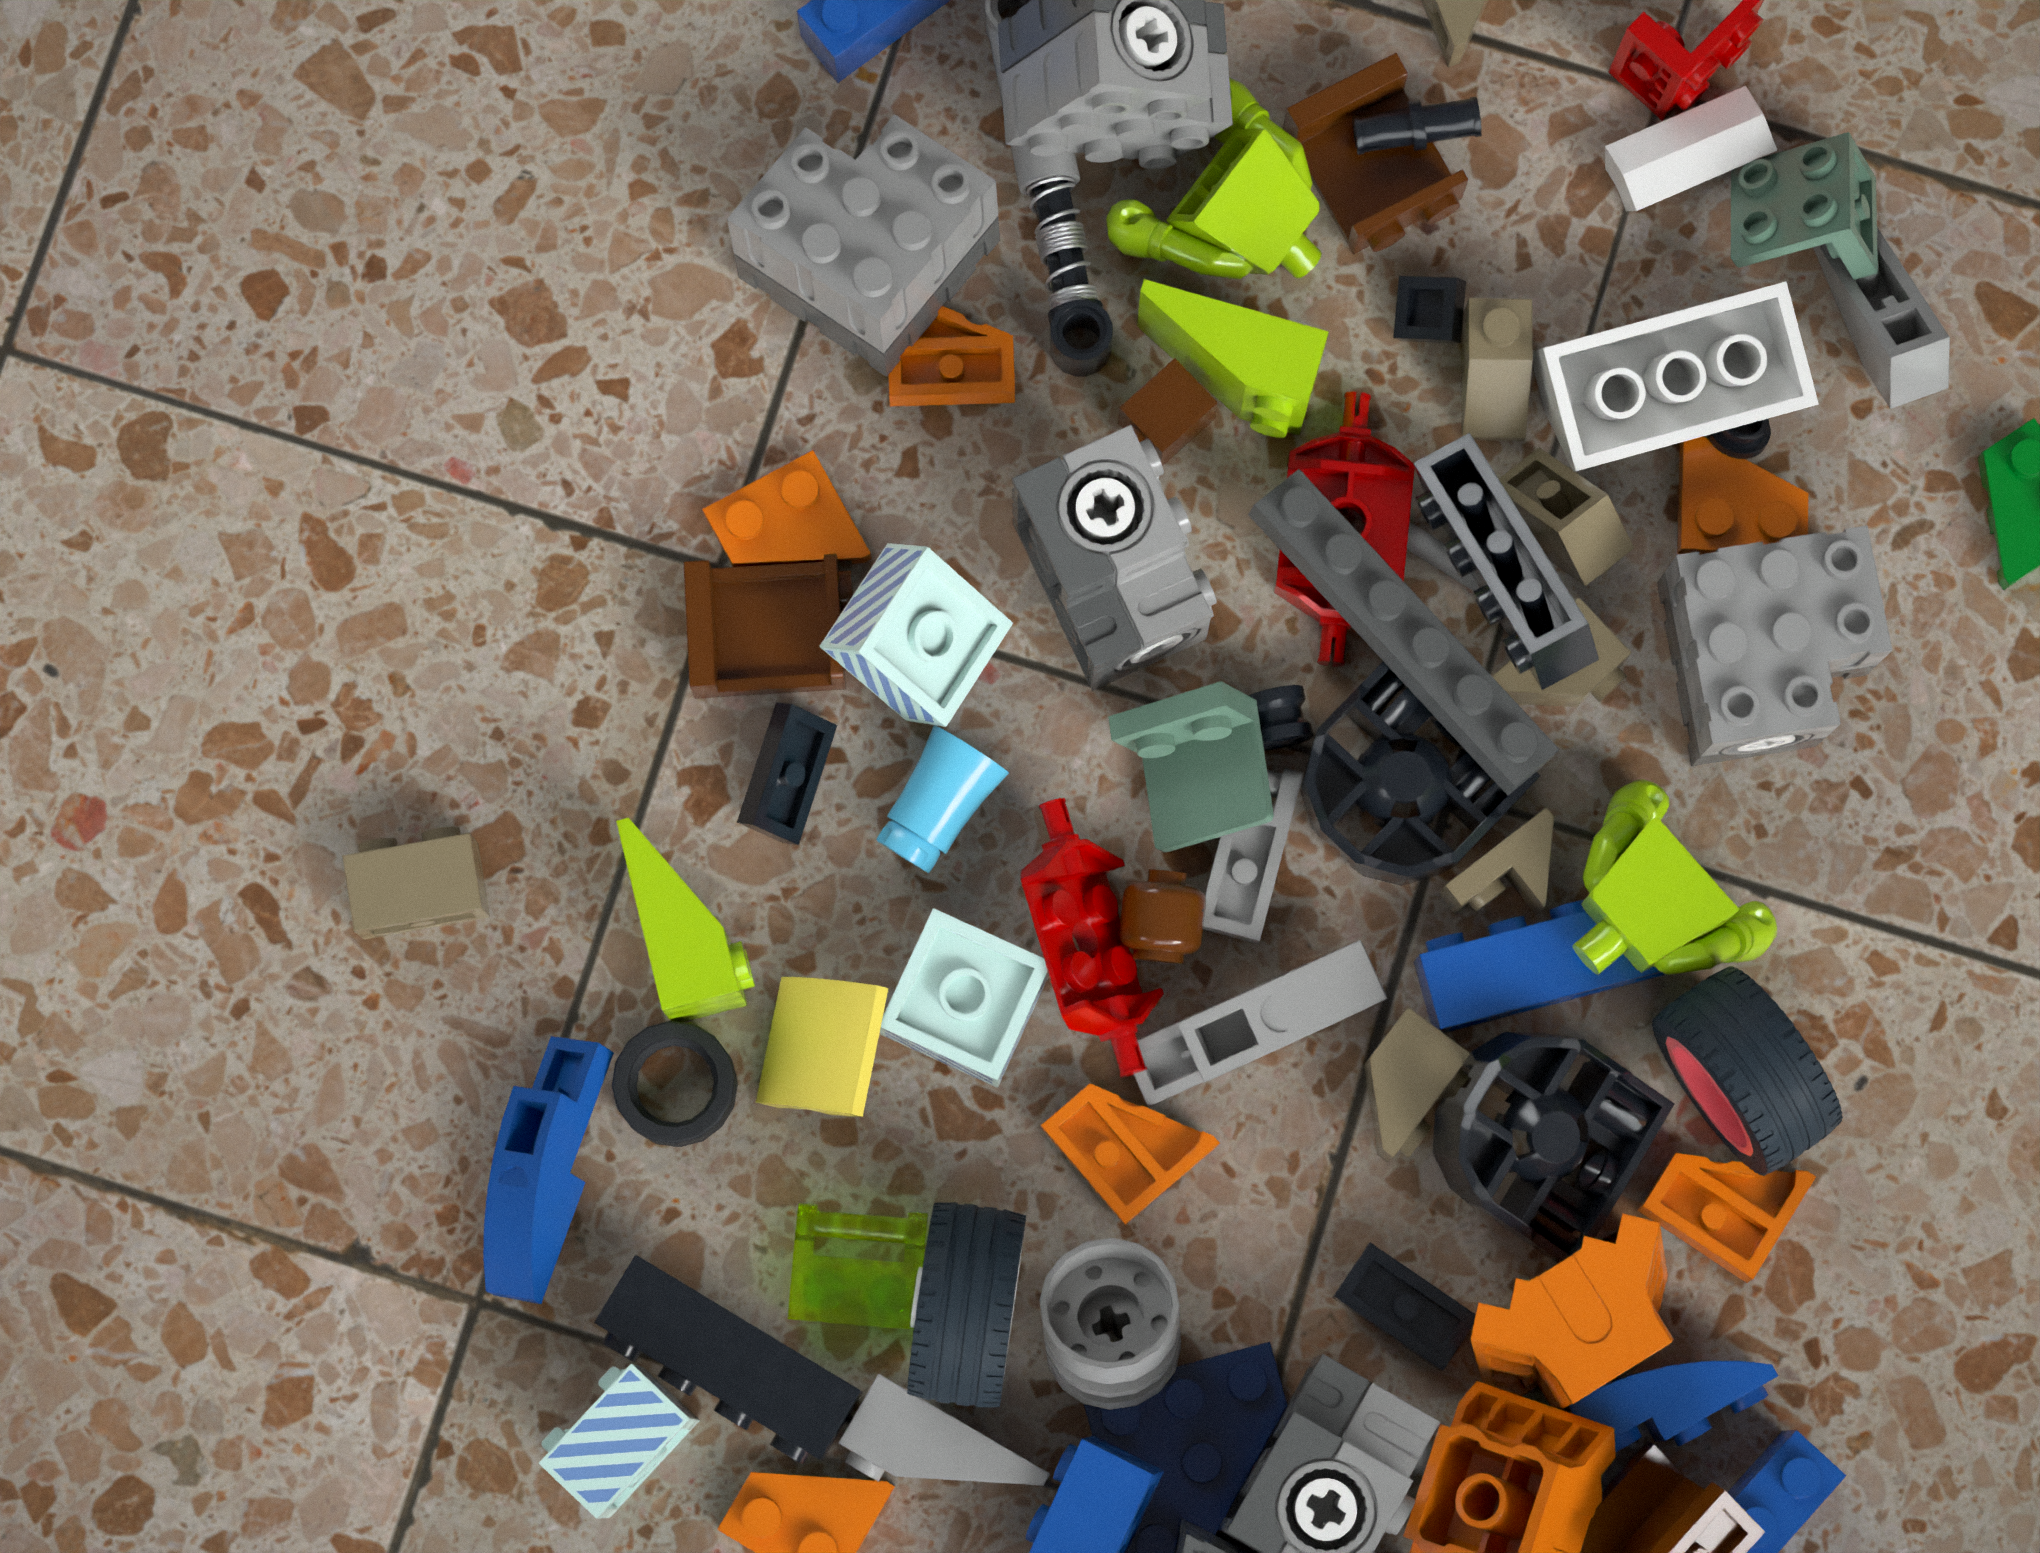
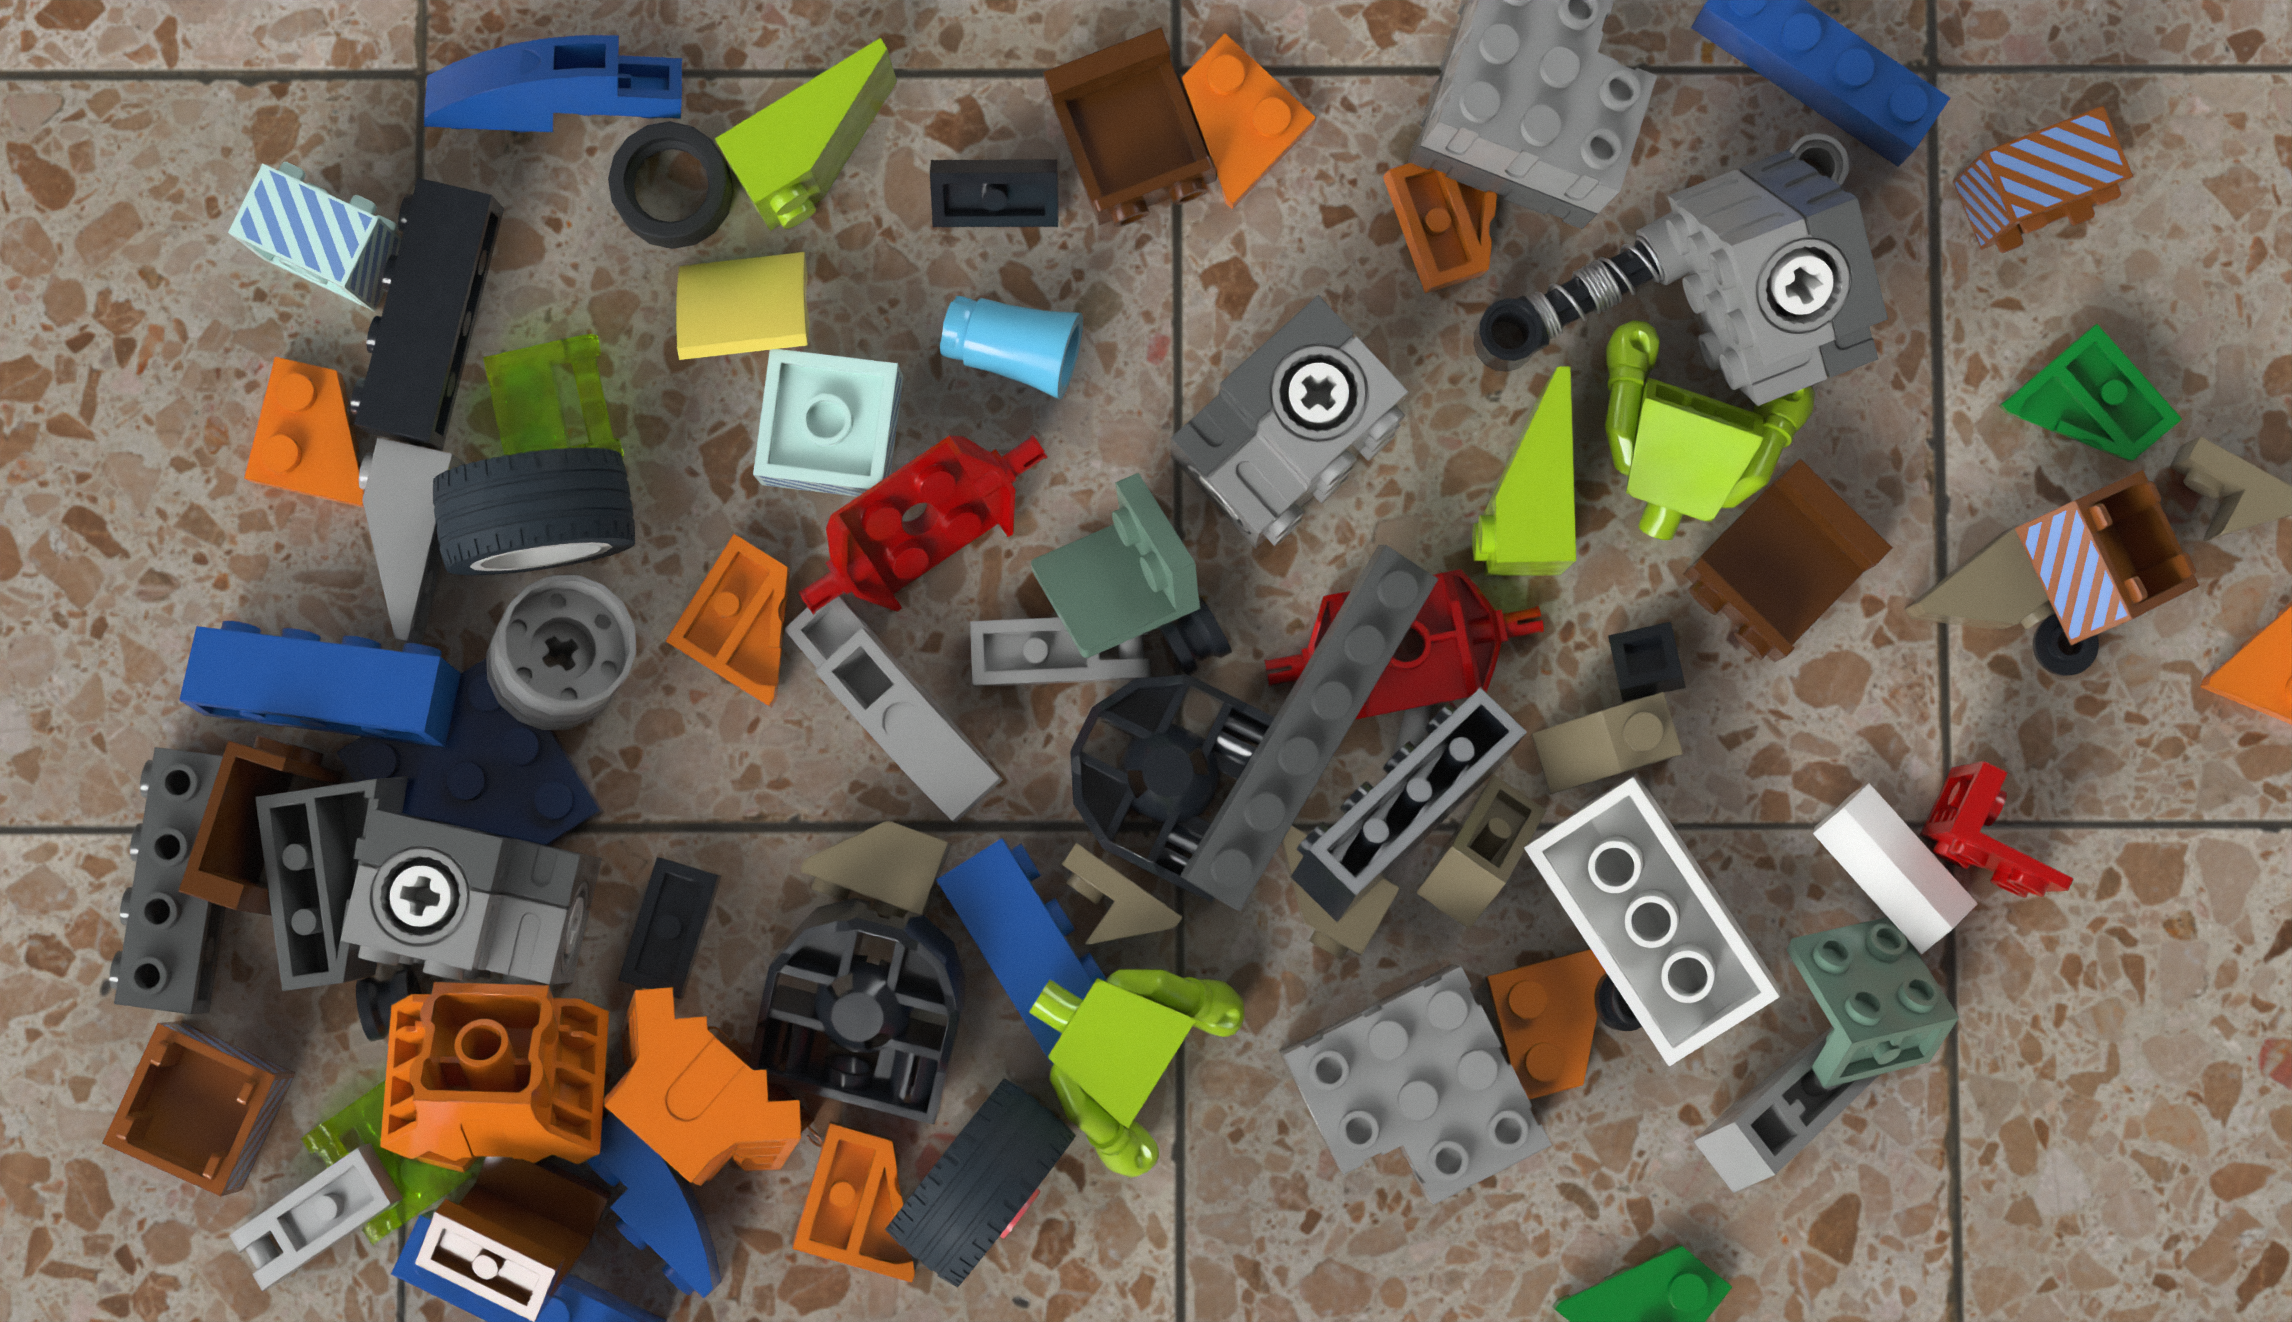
camera: 75 degrees right, 5 degrees up
(916, 634) = (1158, 266): light aqua container -> none
(1162, 917) = (965, 586): reddish brown head -> none
(1169, 410) = (1457, 438): reddish brown brick -> none
(1417, 125) = (1828, 592): black pin -> none

